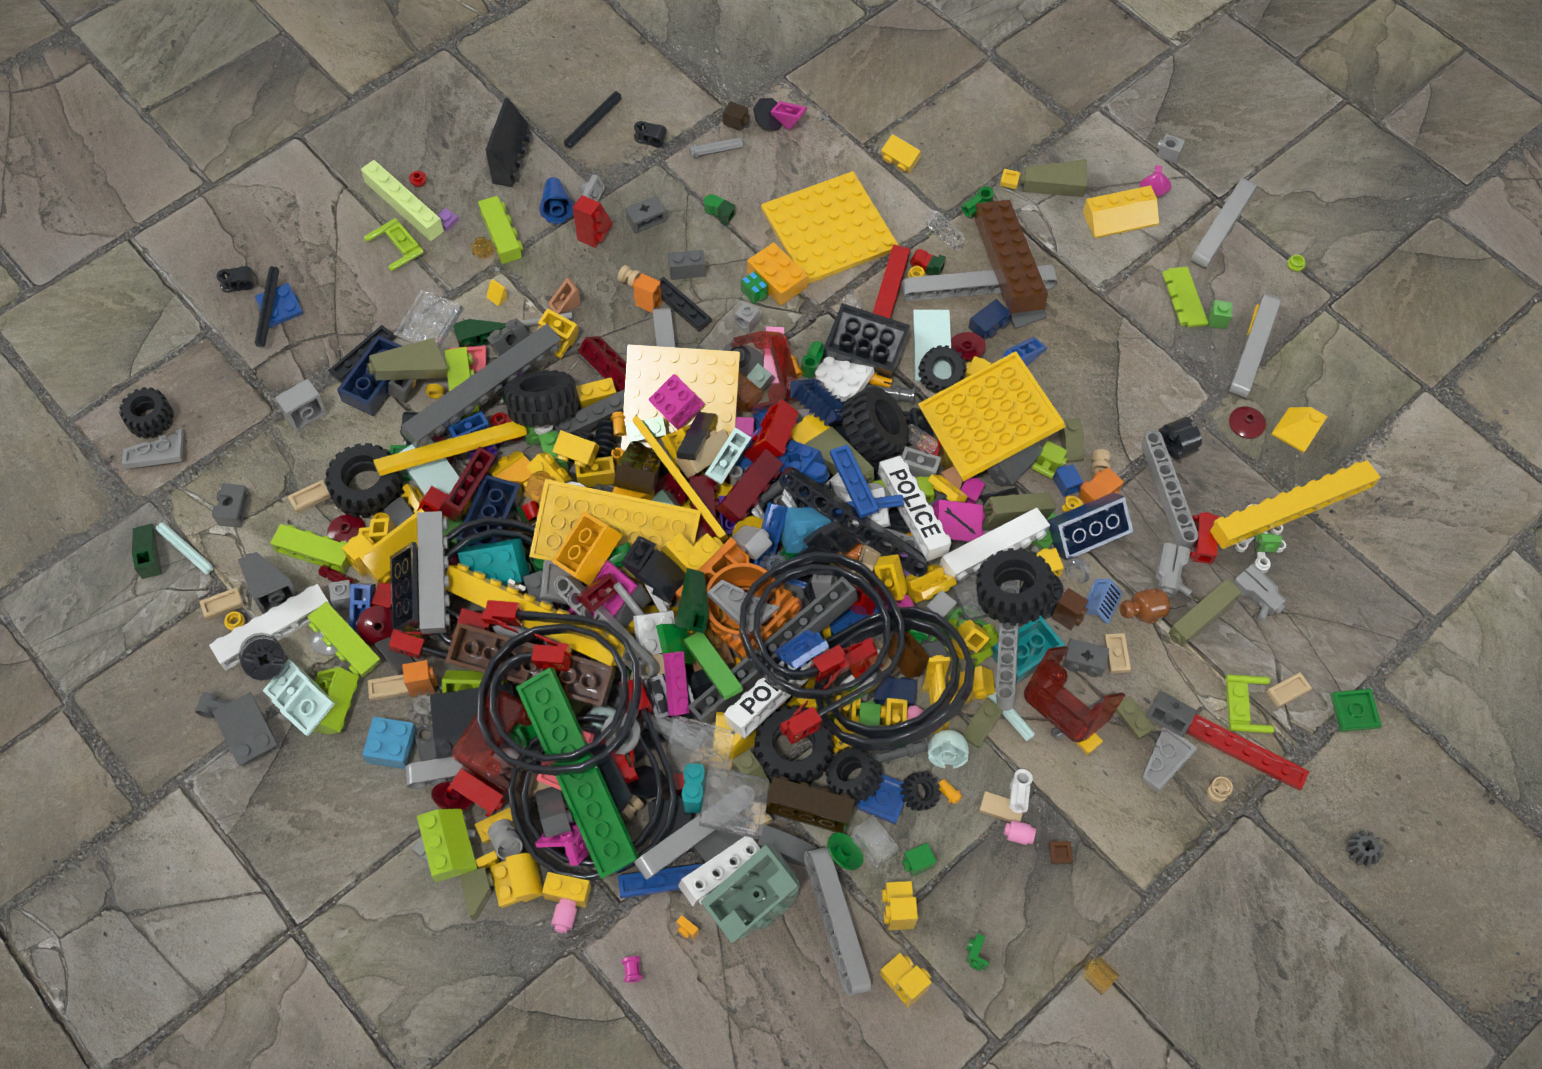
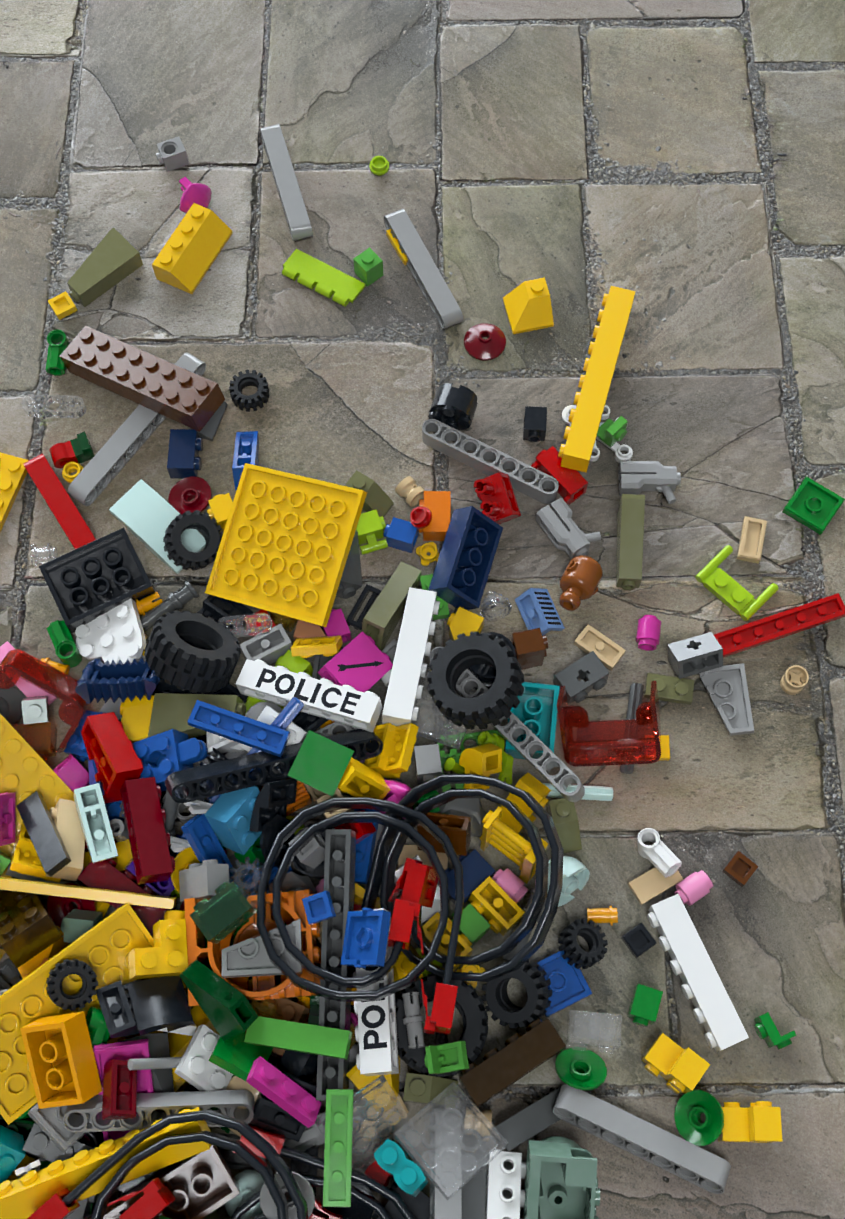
camera: 45 degrees left, 5 degrees up
(618, 519) = (84, 995): none -> black tyre
(673, 738) = (338, 1148): none -> bright green tile
(742, 559) = (223, 912): none -> clear green brick
(774, 728) = (413, 1020): none -> light grey pin
(777, 758) = (446, 1058): none -> bright green bracket
(794, 610) = (318, 907): none -> blue plate
(878, 543) = (320, 763): none -> green piece
(881, 946) = (689, 1122): none -> green dish
(955, 827) = (638, 940): none -> black tile
(969, 876) = (697, 973): none -> white brick
(1065, 328) = (245, 380): none -> black tyre
(1088, 477) = (420, 517): none -> red plate
(1148, 512) = (497, 498): none -> red brick
(1157, 674) = (648, 632): none -> dark pink brick
(1223, 495) = (535, 423): none -> black brick

